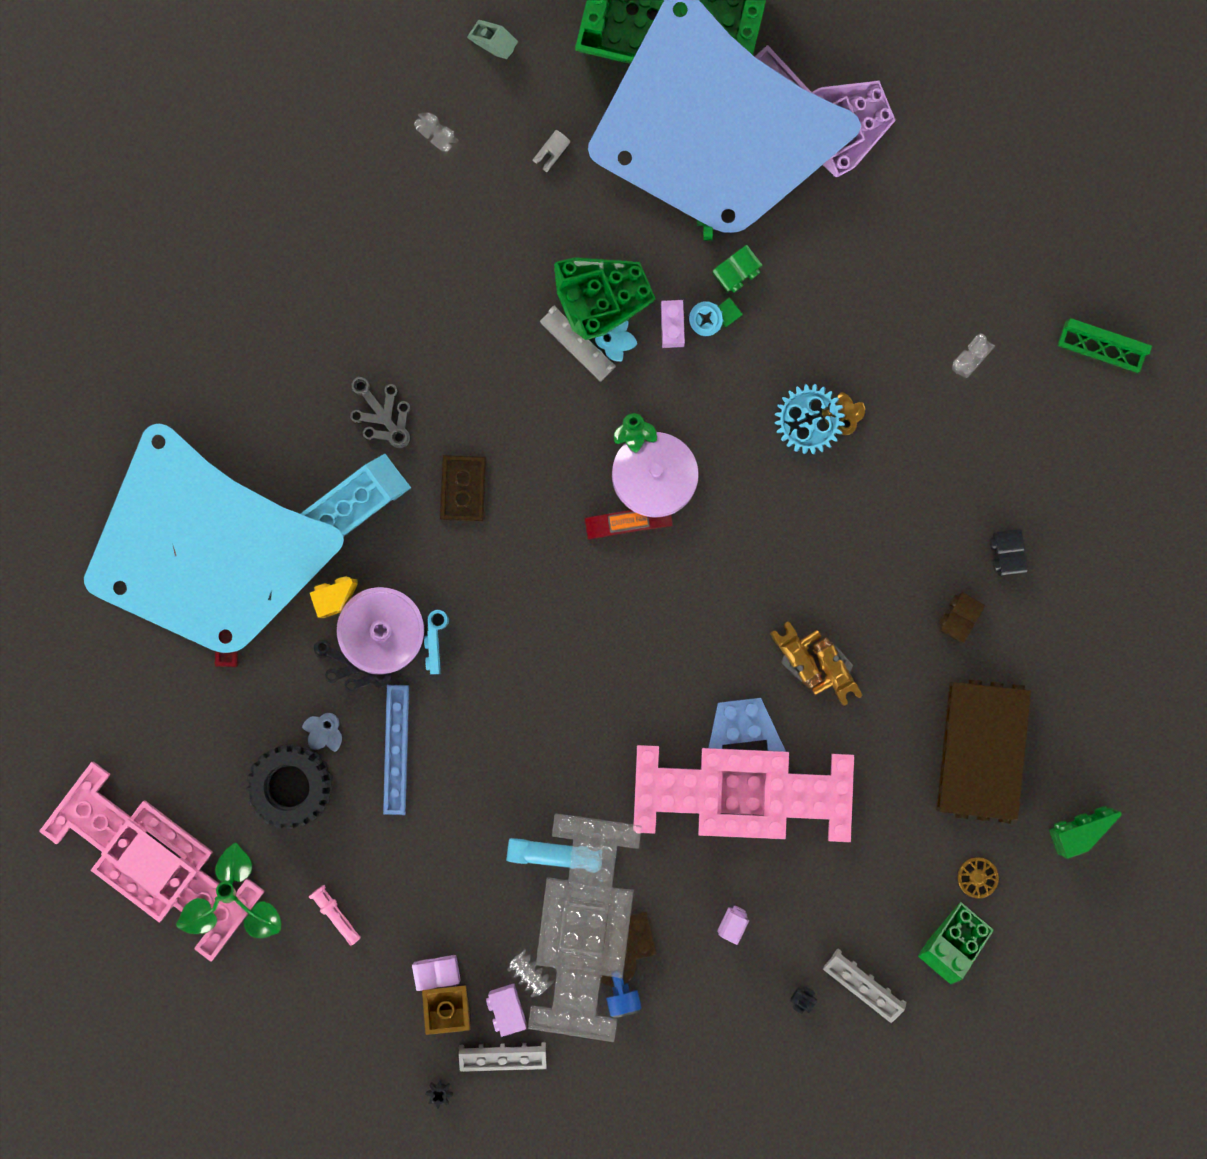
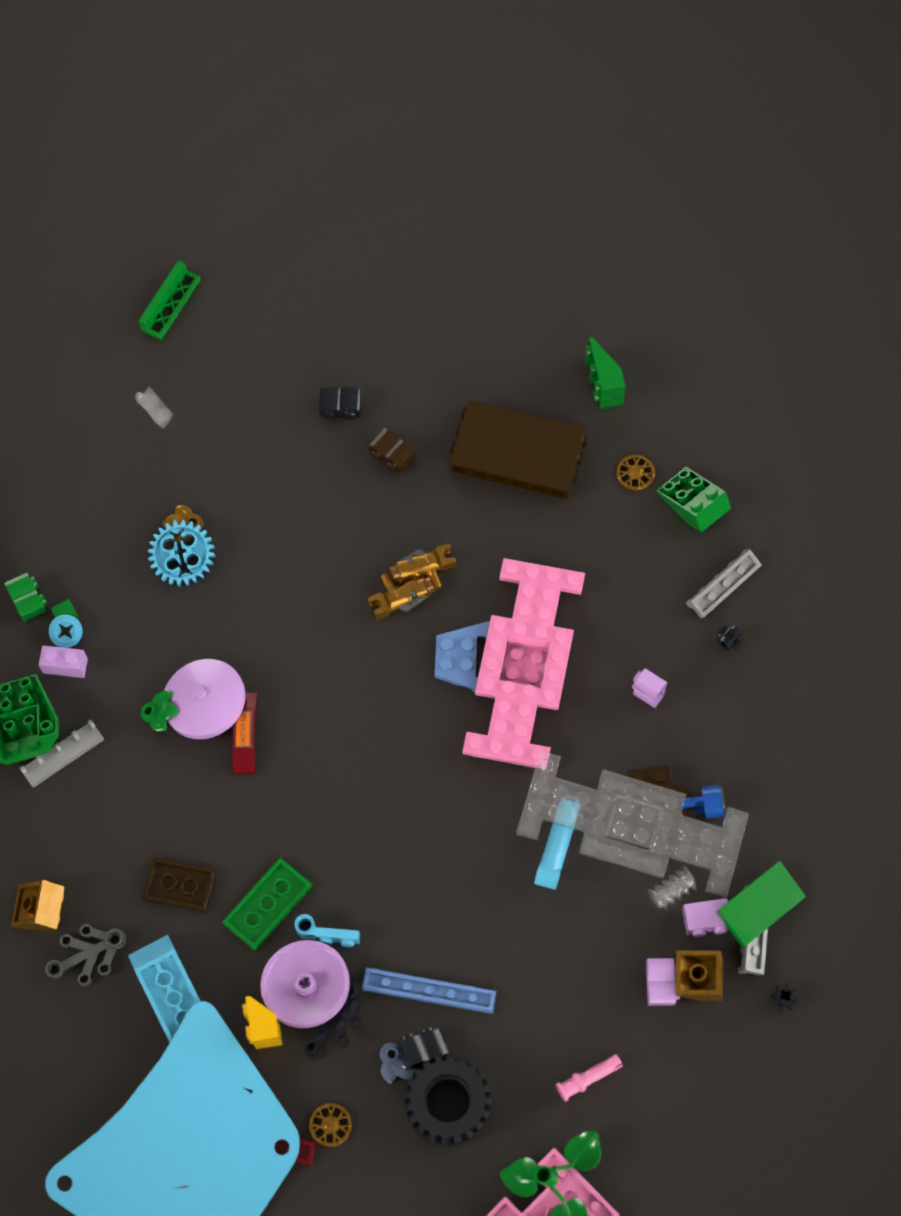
camera: 85 degrees left, 20 degrees down
(255, 677) = (330, 1125): none -> pearl gold wheel
(336, 754) = (422, 1047): none -> black brick
(418, 355) = (38, 906): none -> pearl gold slope
(457, 578) = (267, 904): none -> green tile
(525, 1062) = (760, 904): none -> green tile
(618, 342) = (69, 717): medium azure plate -> none

